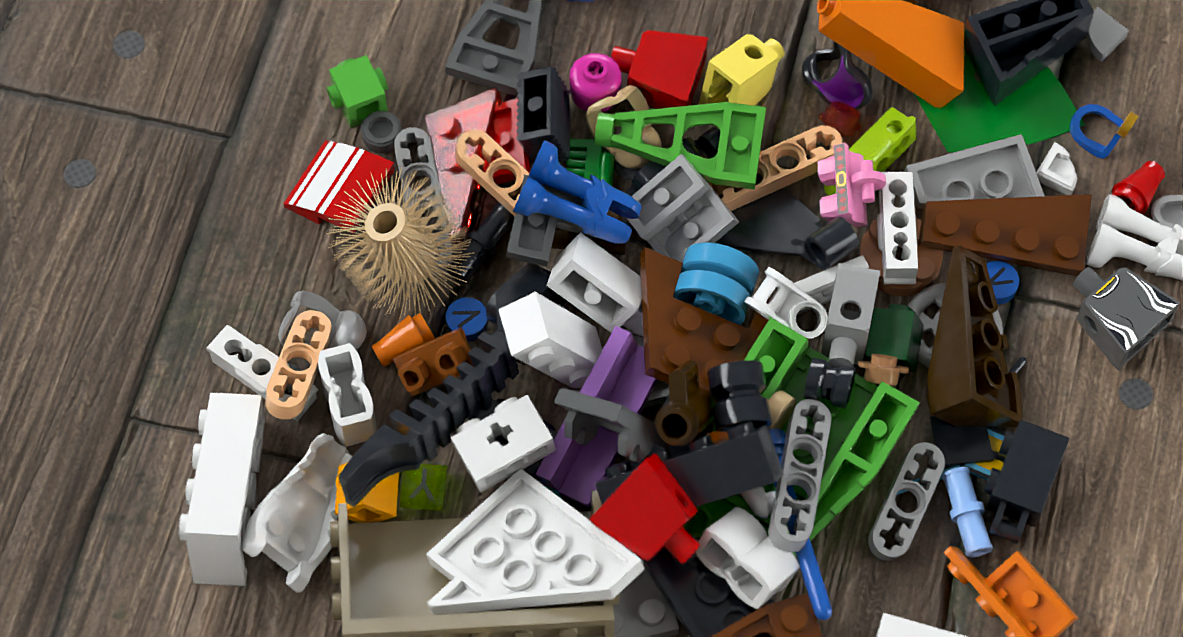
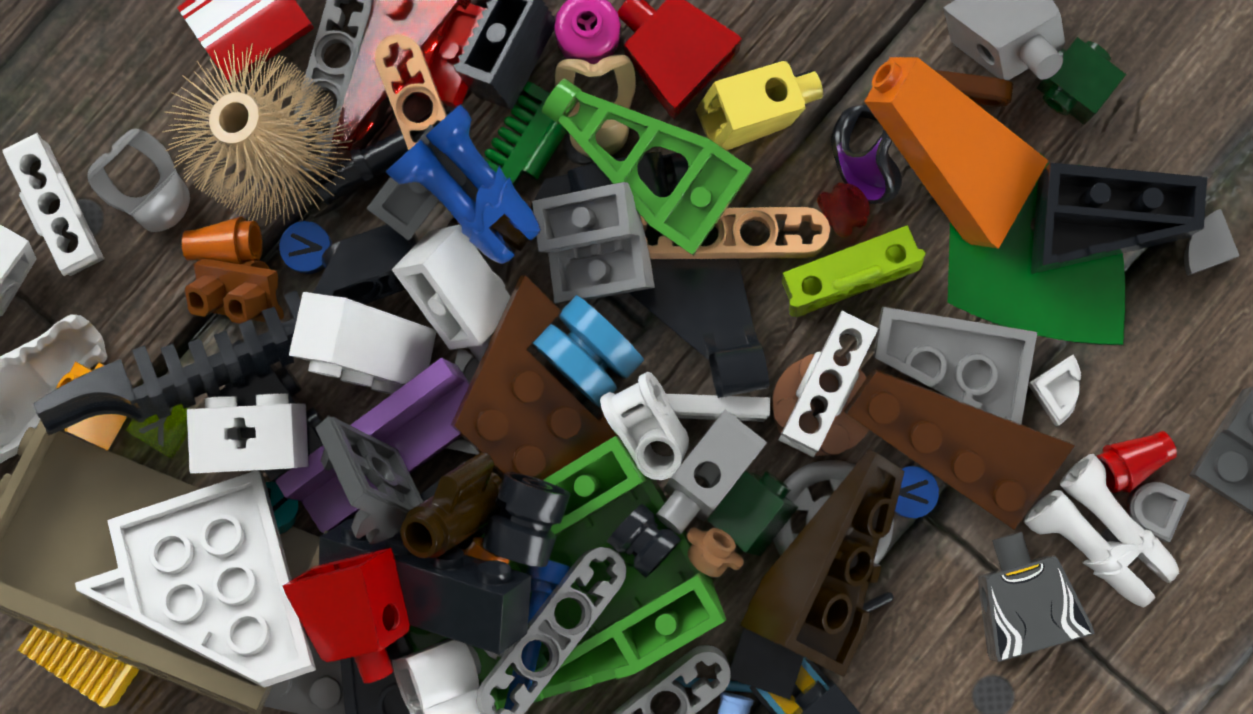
camera: 30 degrees right, 20 degrees up
(301, 380) = (48, 241): light nougat beam -> none
(347, 394) = (126, 271): white brick -> none
(781, 408) = (573, 540): tan tile -> none
(854, 185) = (800, 311): bright pink hips -> none
(1091, 146) = (1165, 379): blue piece -> none

